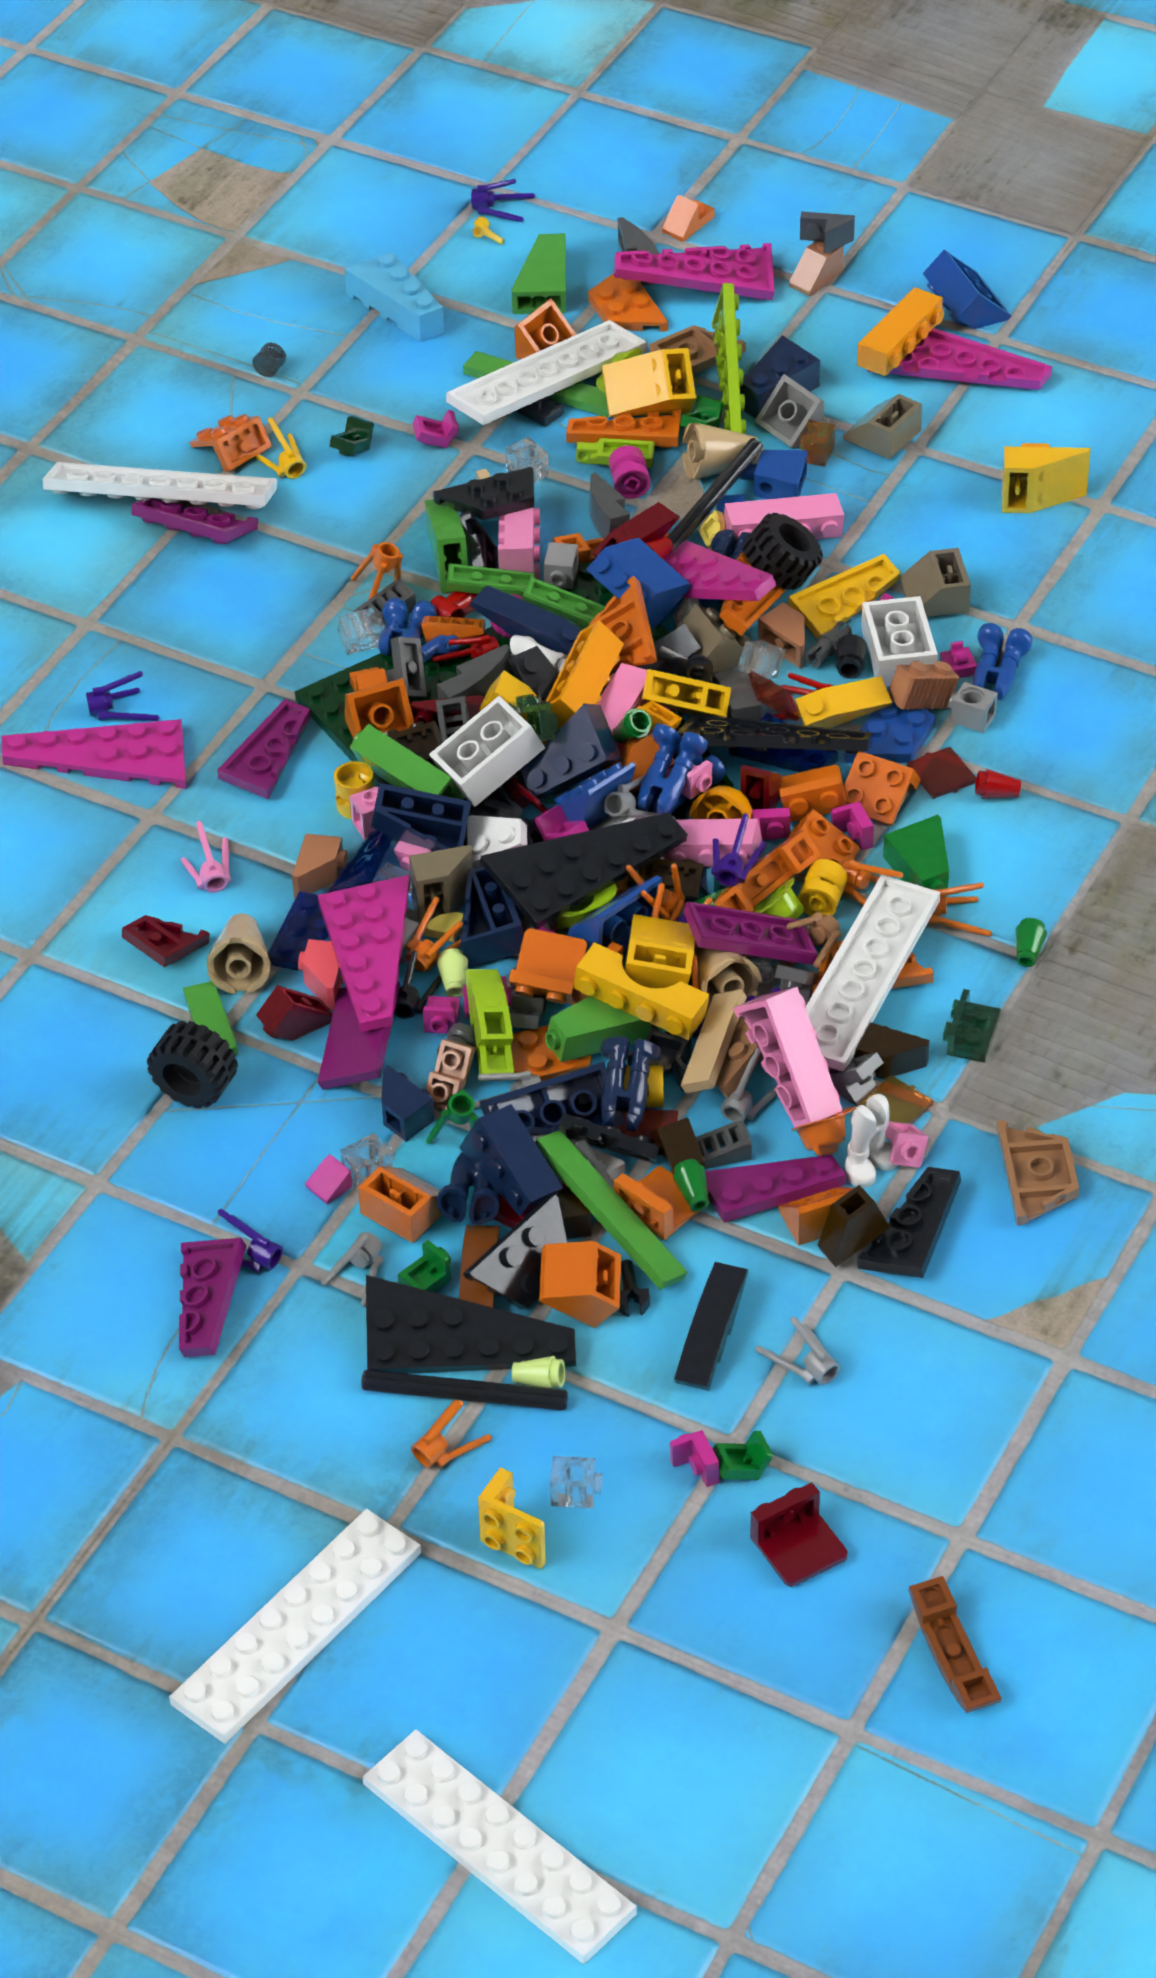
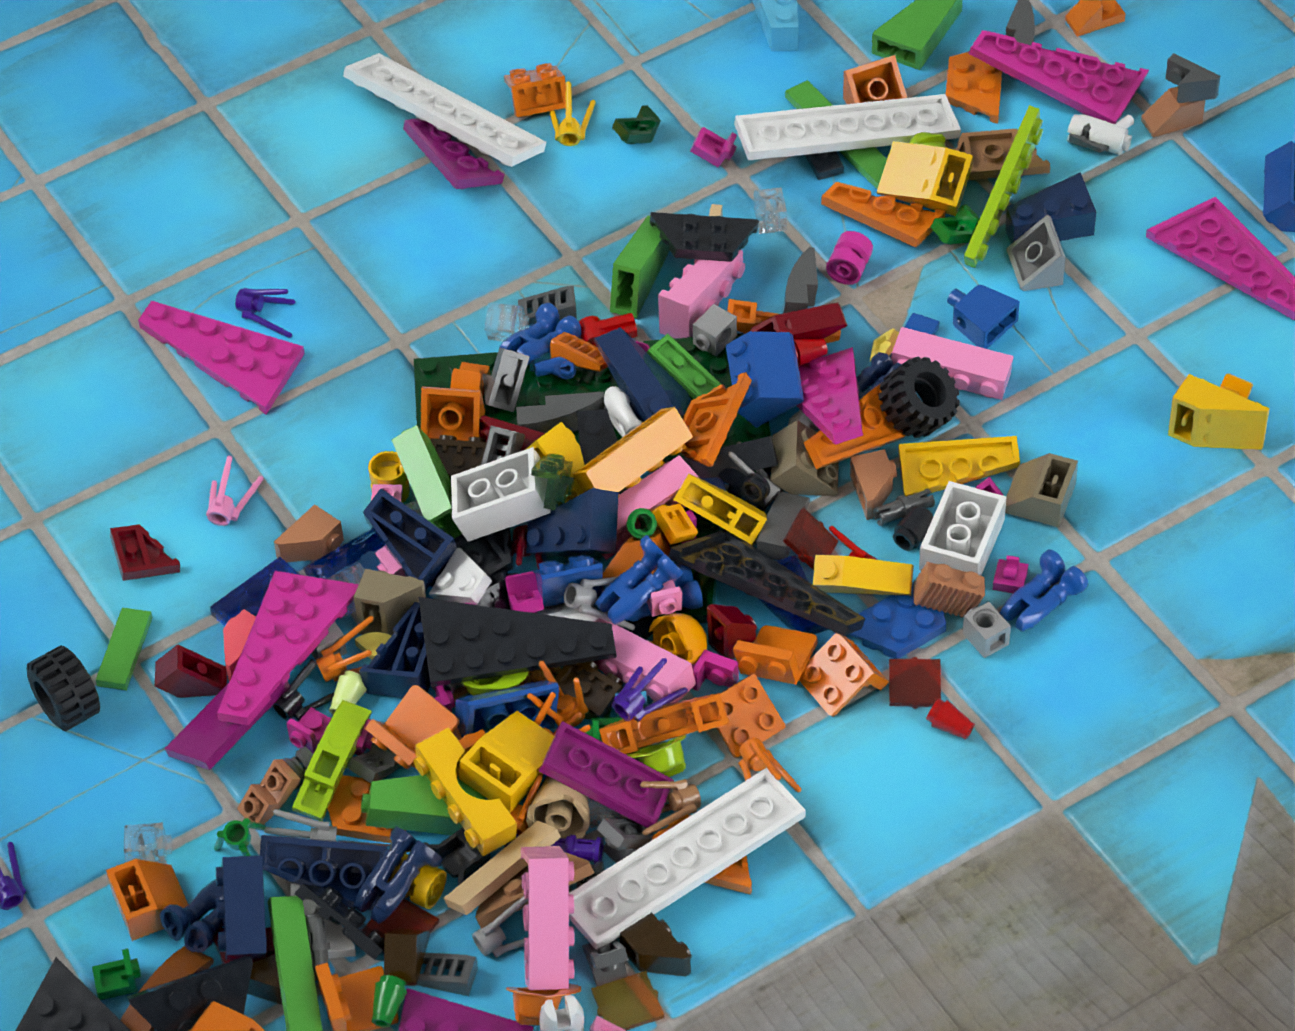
camera: 30 degrees right, 5 degrees up
(239, 956) = (182, 596): tan cone -> none
(264, 754) = (348, 408): magenta wing -> none
(269, 359) = (623, 20): clear smoke wheel -> none
(329, 1179) = (107, 848): dark pink slope -> none
(361, 1254) = (83, 931): light grey plant -> none
(385, 558) = (563, 263): orange plant -> none
(404, 1105) = (212, 803): dark blue slope -> none
(474, 579) = (642, 318): bright green tile -> none
(480, 546) = (660, 274): black wing -> none
(481, 646) = (585, 383): red plant -> none
(600, 451) = (838, 224): lime hinge -> none
(711, 449) = (943, 268): tan cone -> none
(715, 492) = (904, 312): black axle -> none
(761, 658) = (826, 498): clear brick -> none
(768, 305) = (1100, 134): none -> white piece
(818, 442) = (1042, 295): clear orange brick -> none
(823, 887) = (715, 755): yellow wheel -> none
(855, 821) = (792, 697): dark pink bracket -> none
(887, 426) = (1116, 305): dark tan slope -> none
(900, 331) = (1193, 210): light orange brick -> none
(919, 853) = (828, 763): green slope -> none
(942, 908) = (810, 822): orange plant -> none
(971, 1030) = (747, 958): clear green bracket -> none
(1029, 940) = (862, 894): green cone -> none

